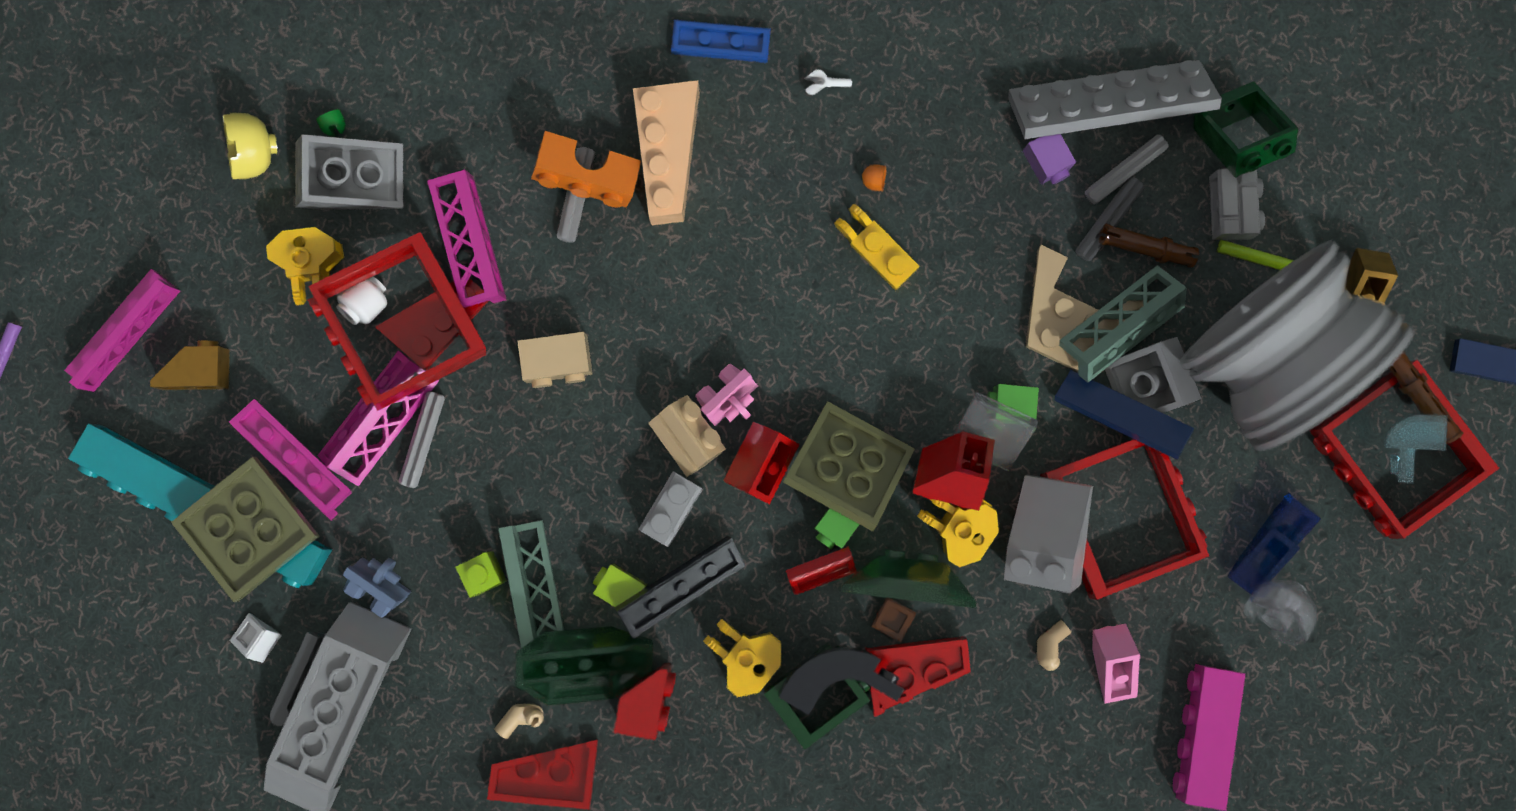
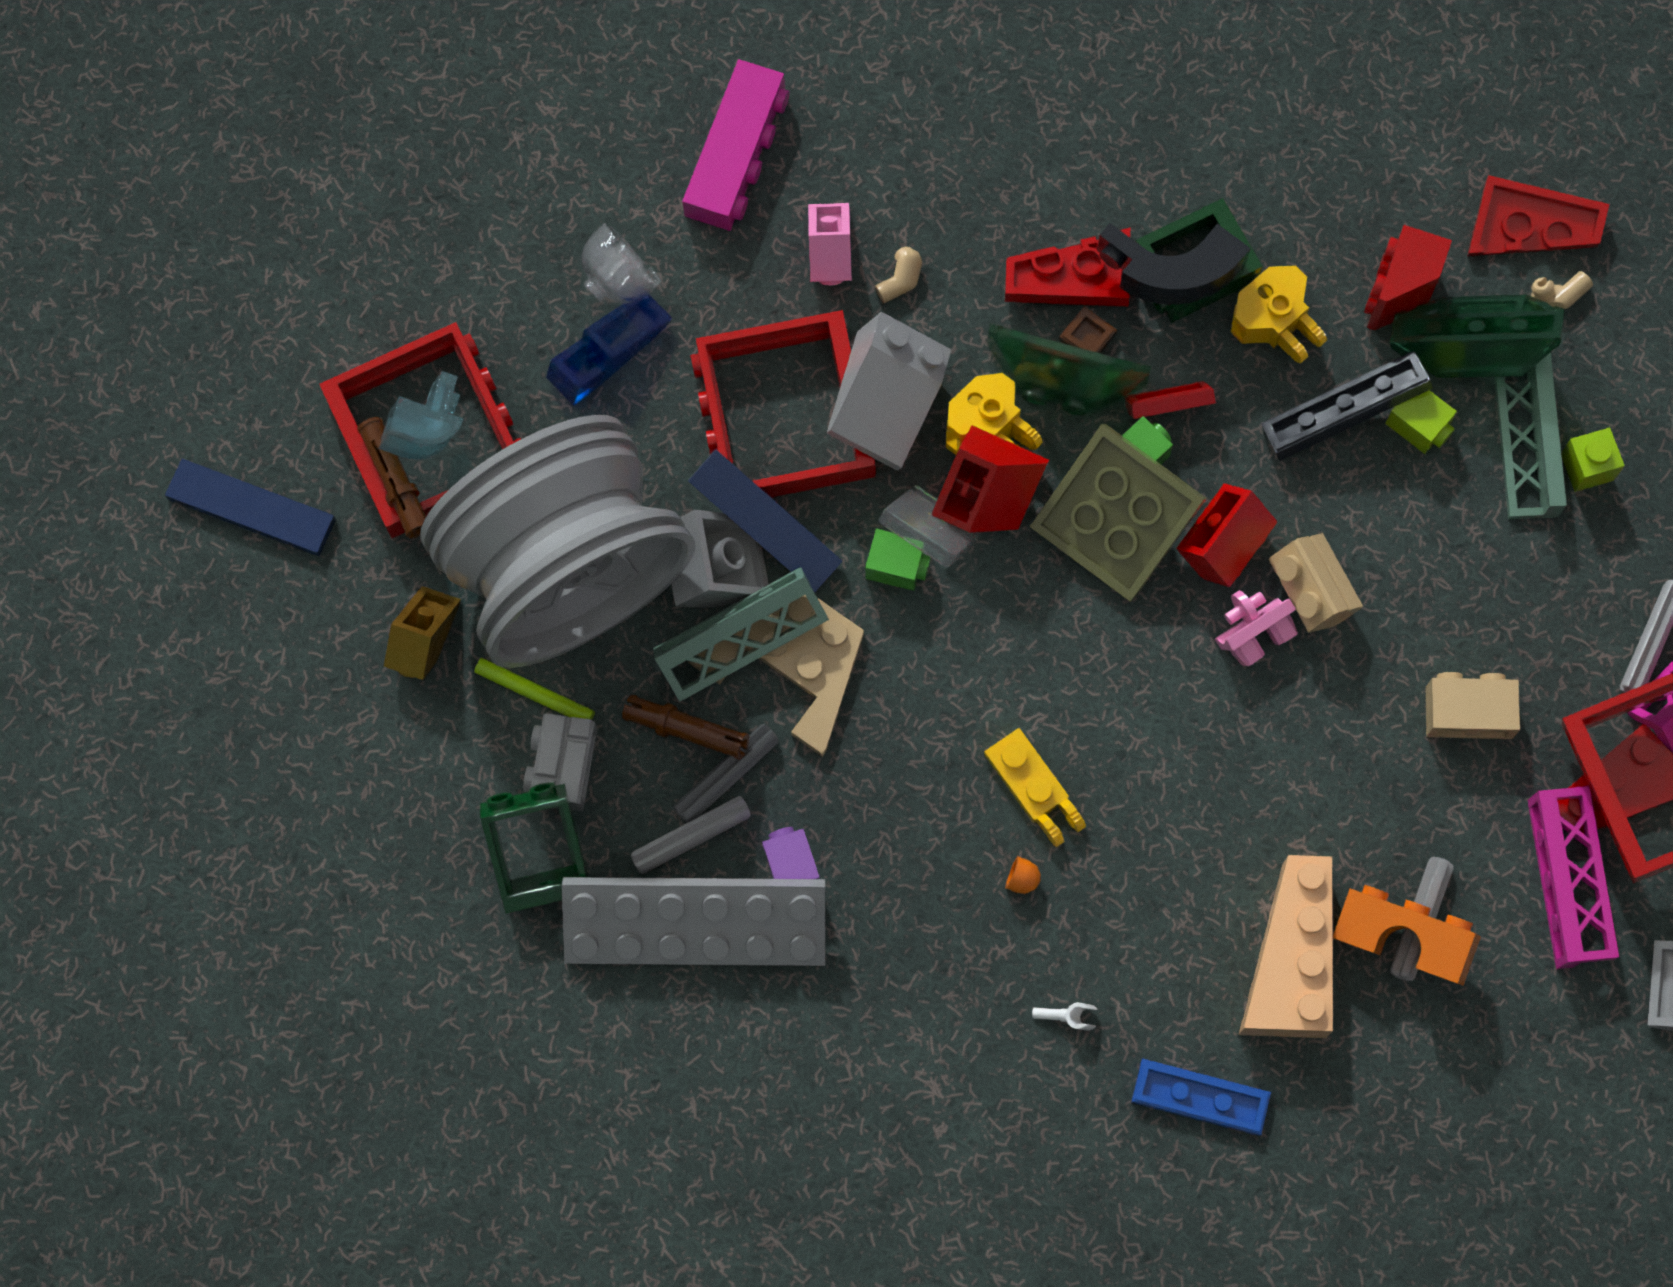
camera: 165 degrees left, 10 degrees down
(670, 509) = (1347, 499): light grey brick -> none

